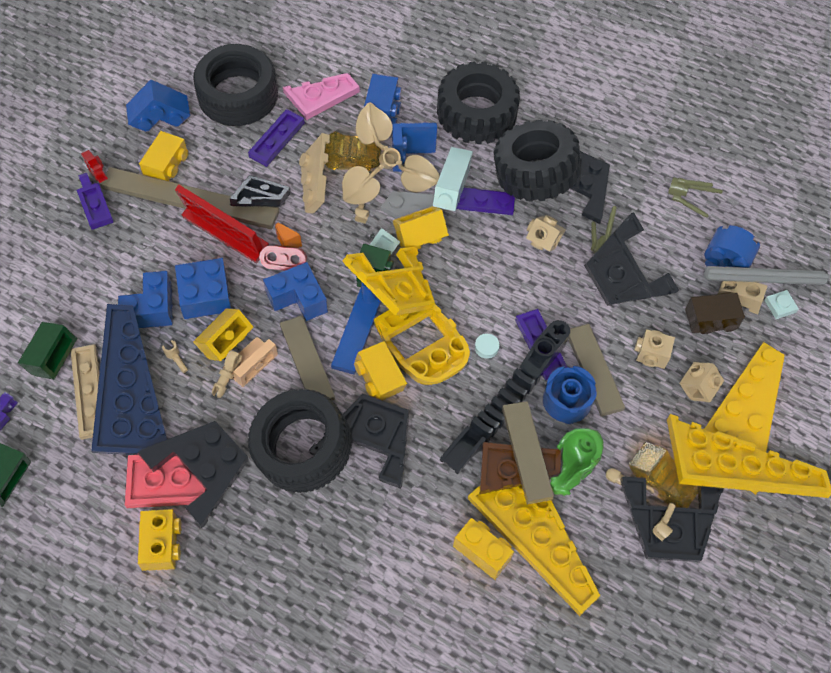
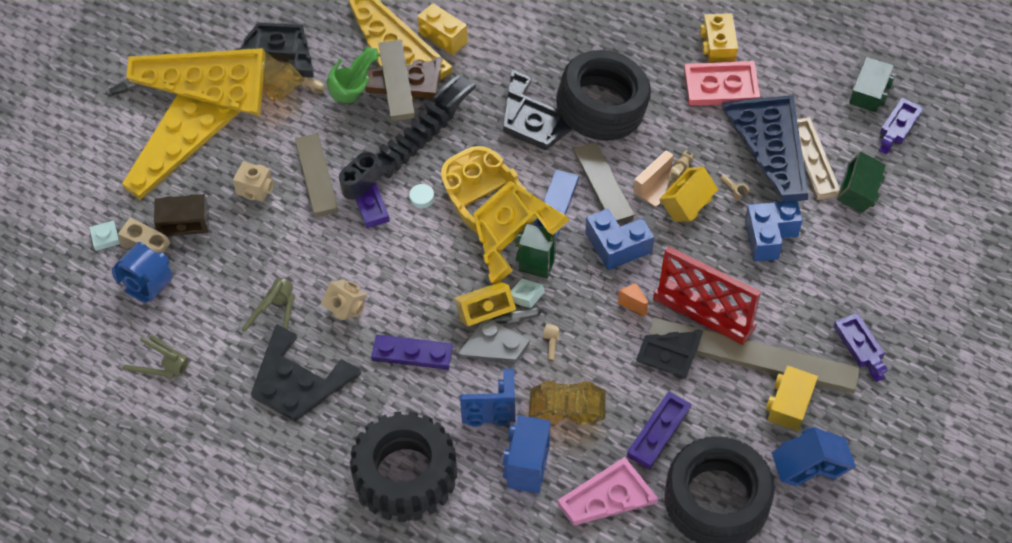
camera: 175 degrees left, 5 degrees down
(94, 166) = (871, 379): red plate -> none
(202, 288) = (718, 241): blue brick -> none
(211, 459) = (686, 91): black wing -> none
(284, 257) = (646, 280): plate -> none
(312, 178) = (609, 371): tan wing -> none
(359, 185) = (519, 351): tan plant -> none
(379, 371) = (530, 161): yellow brick -> none
(452, 179) = (444, 351): light aqua brick -> none
(540, 178) = (344, 337): black tyre -> none
(569, 394) = (346, 138): blue brick -> none
(617, 272) = (271, 256): black wing -> none
(662, 530) = (286, 35): tan hand -> none
(702, 381) = (214, 152): tan brick -> none
(761, 275) = (114, 244): light grey axle -> none

